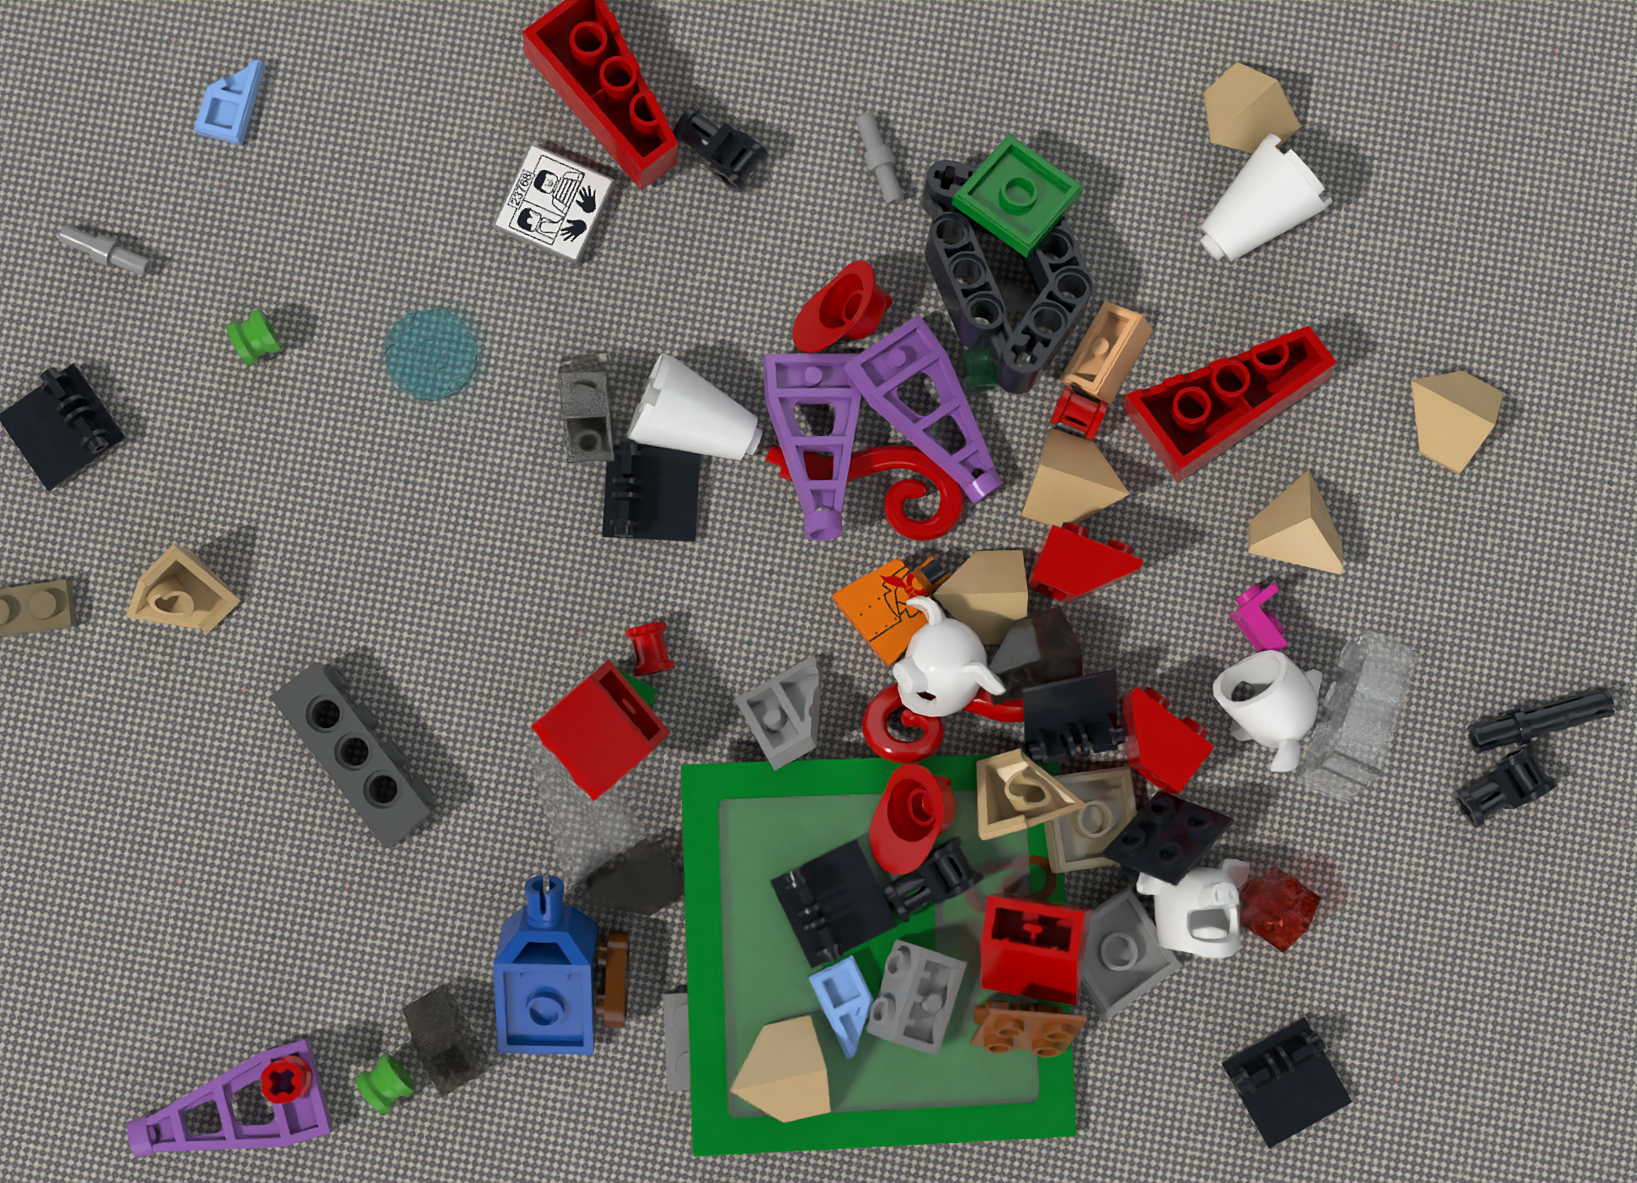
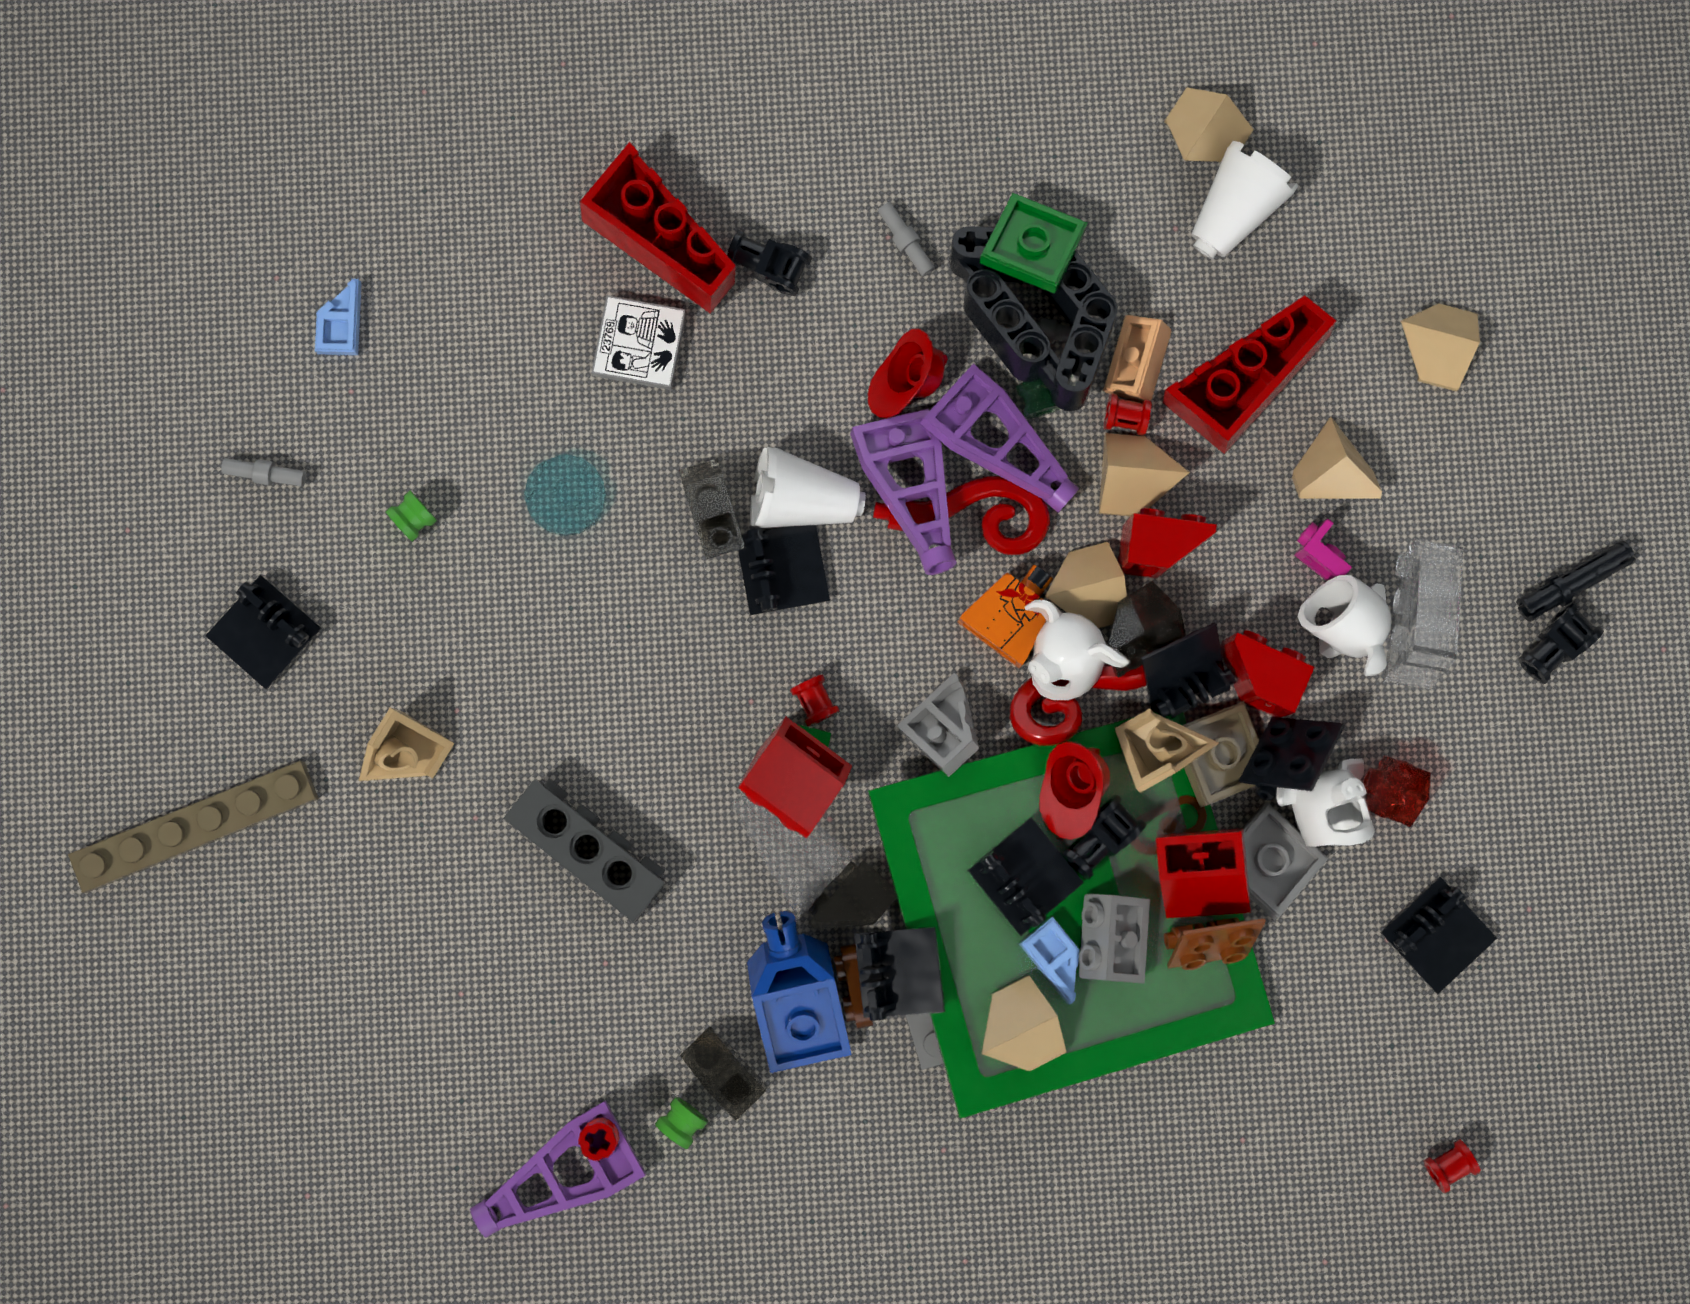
camera: 20 degrees left, 0 degrees up
(664, 976) = (899, 972): none -> black hinge

